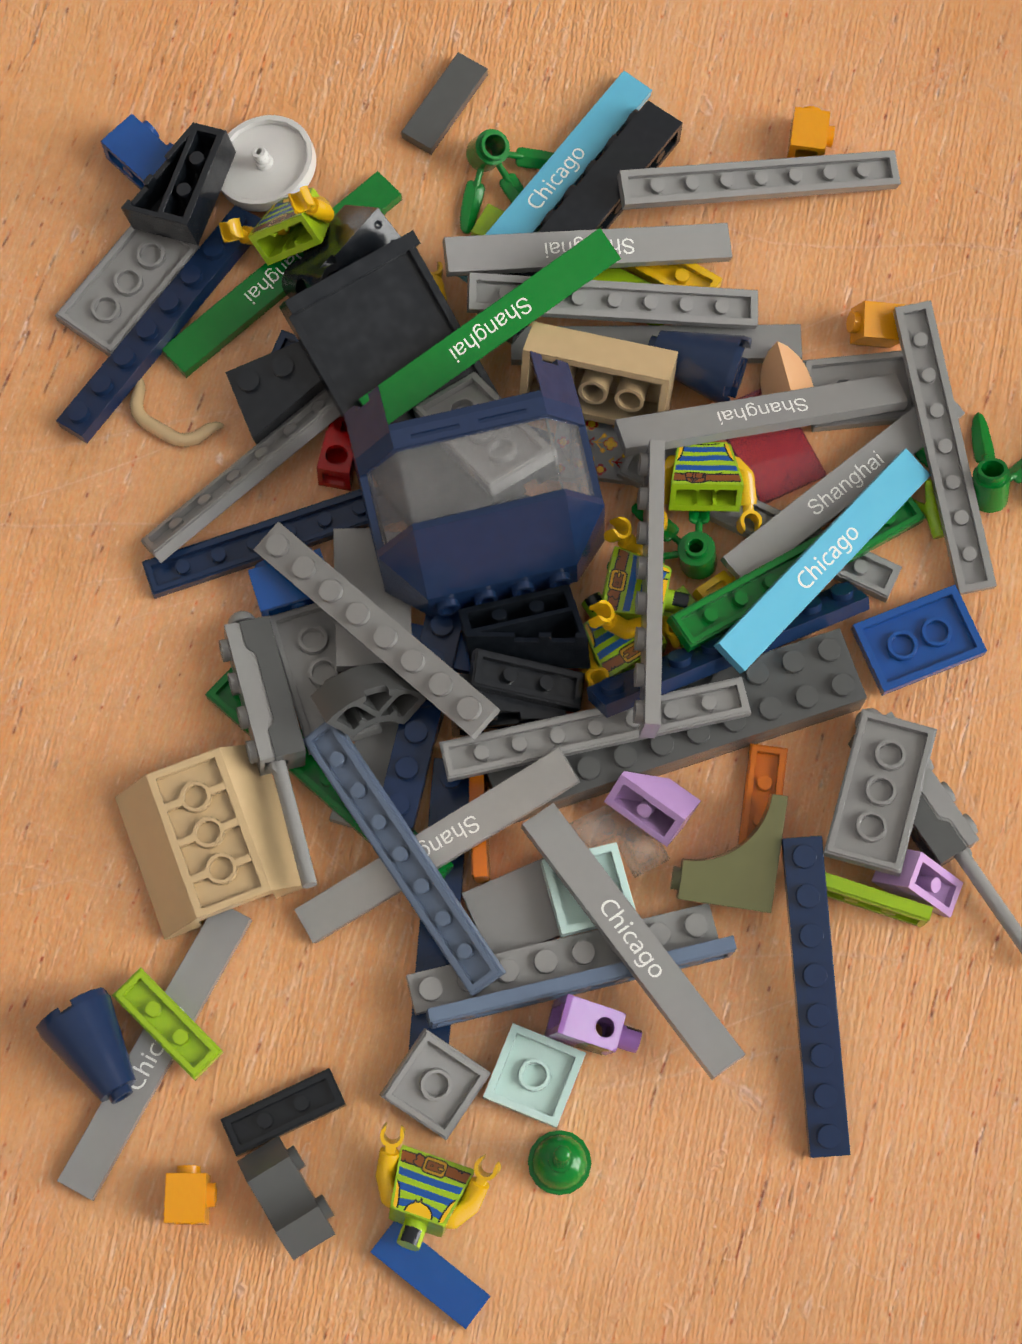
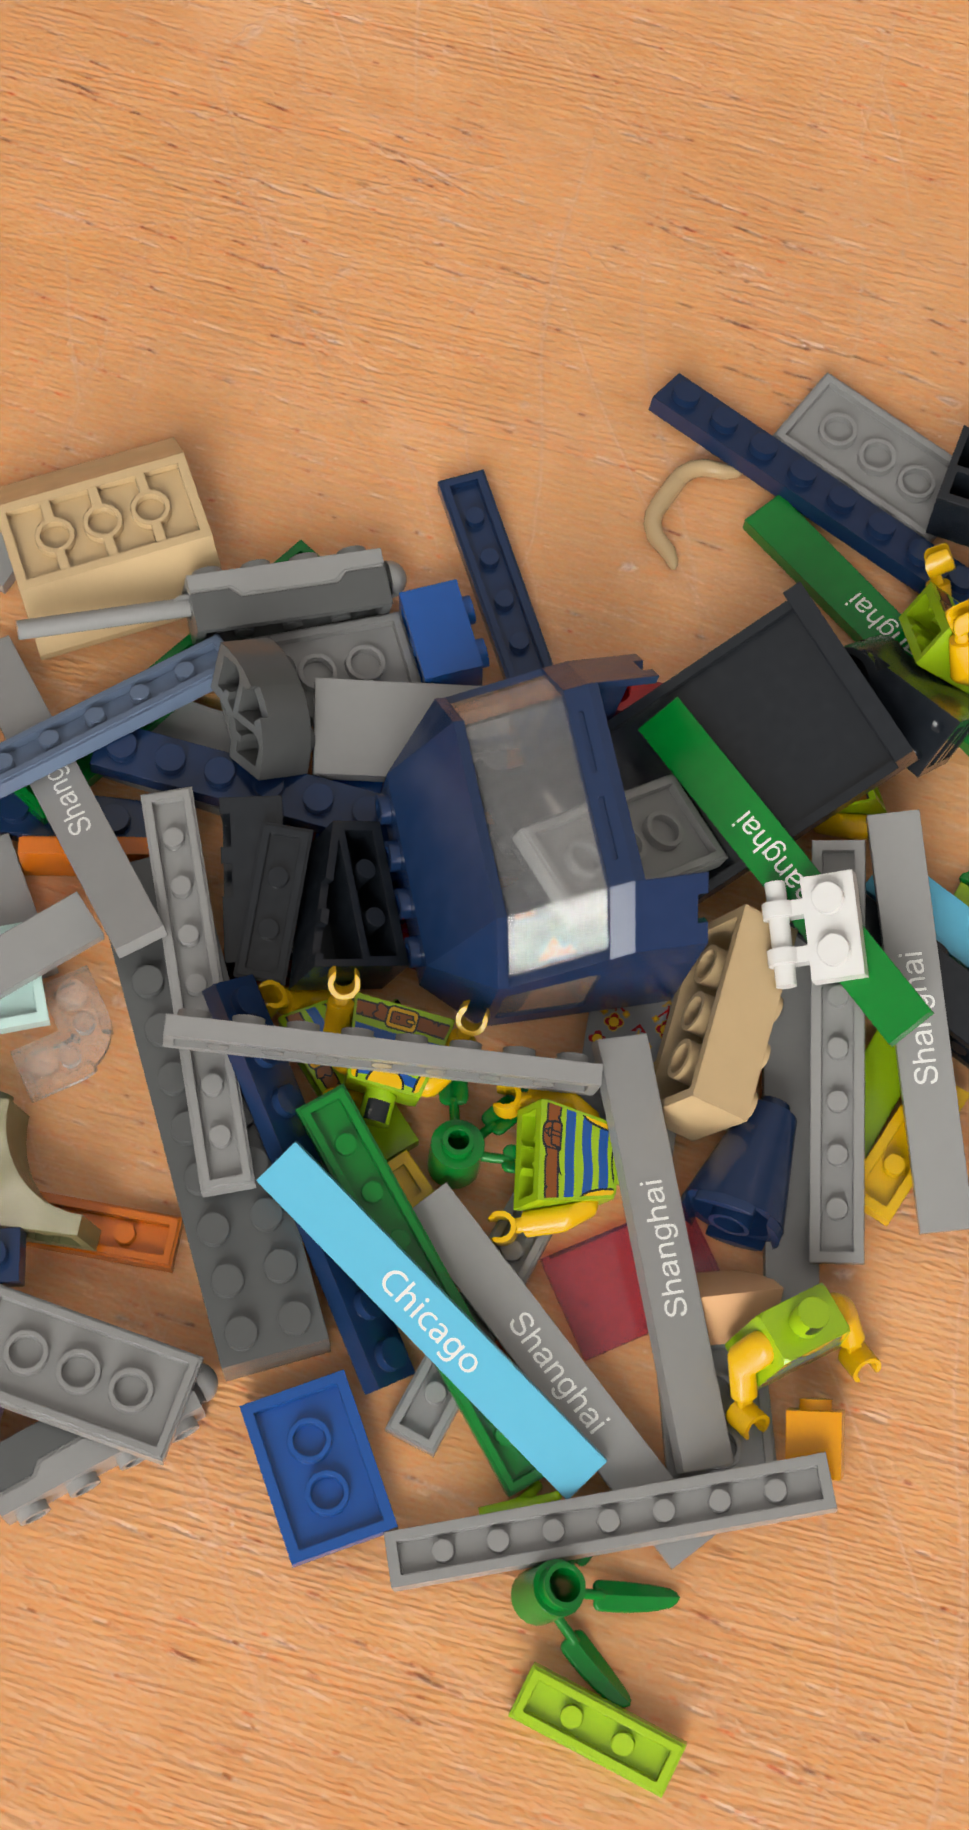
camera: 90 degrees right, 5 degrees down
(241, 477) = (585, 573): light grey tile -> none
(274, 388) = (699, 604): black wedge -> none
(377, 631) = (348, 716): light grey plate -> none
(541, 290) = (832, 929): none -> white plate
(653, 804) = (96, 1074): lavender slope -> none
(820, 336) = (787, 1340): none -> torso

